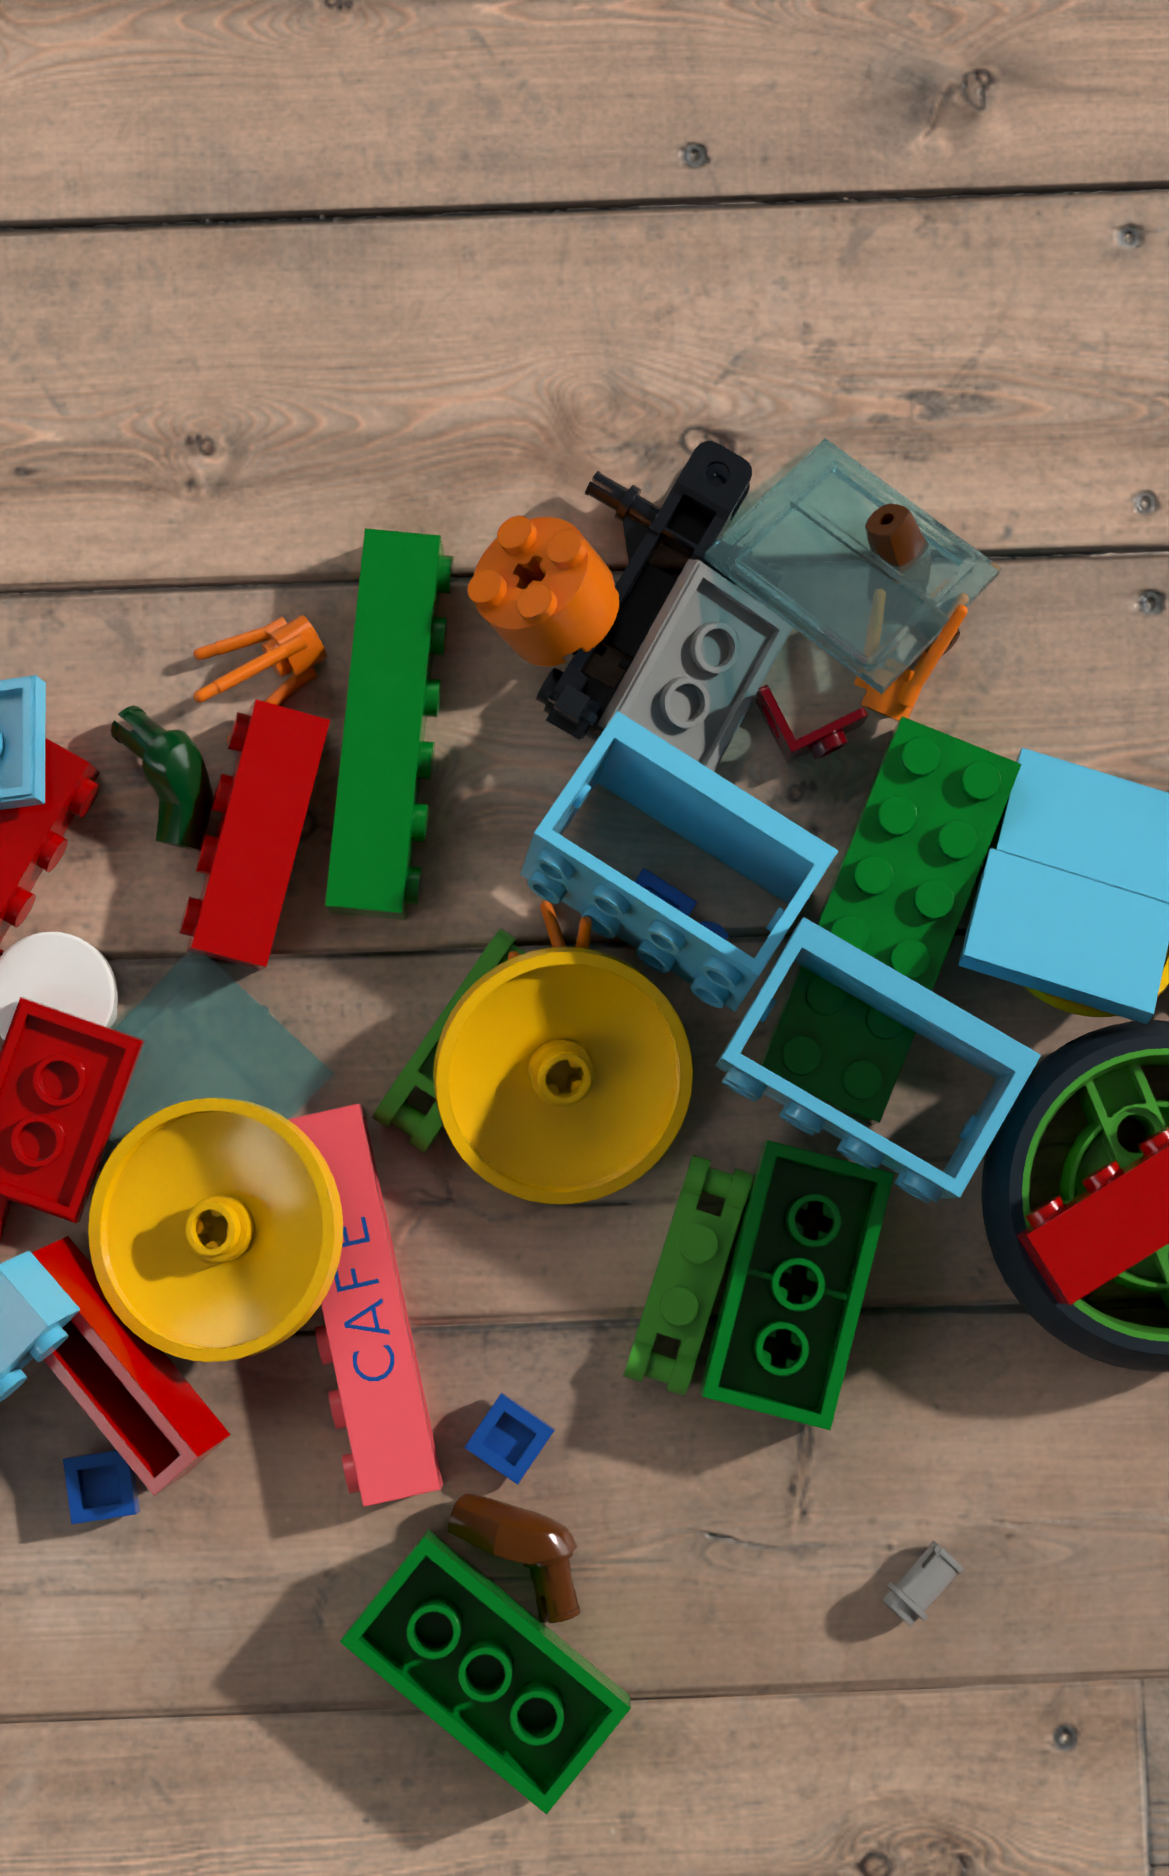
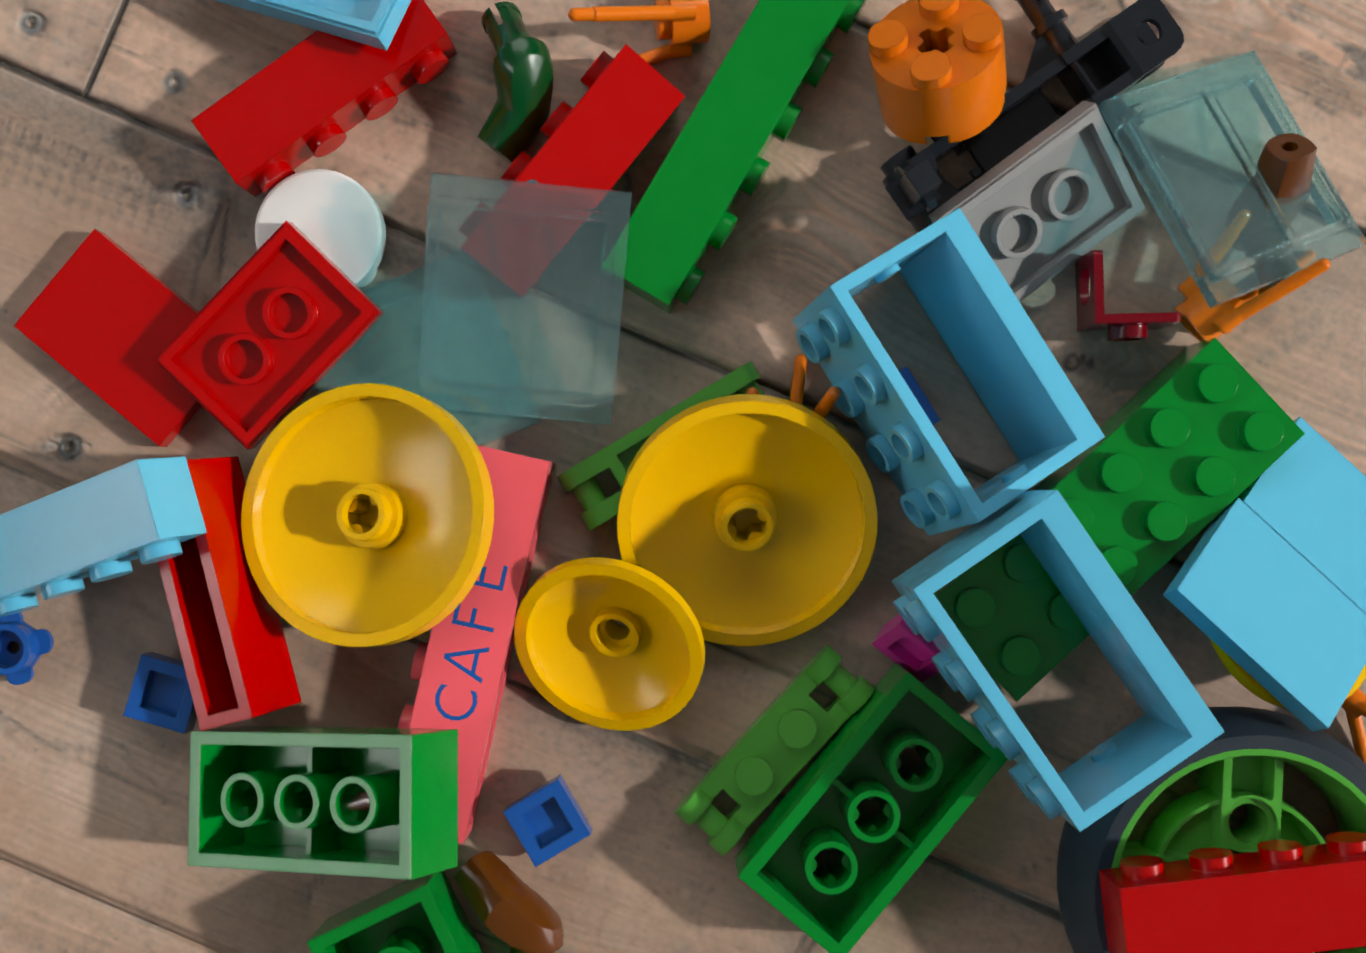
camera: 25 degrees right, 5 degrees up
(268, 968) = (523, 297): none -> clear light blue piece
(293, 1500) = (324, 800): none -> green brick
(486, 1275) = (602, 669): none -> yellow dish
(761, 1122) = (907, 649): none -> dark pink plate

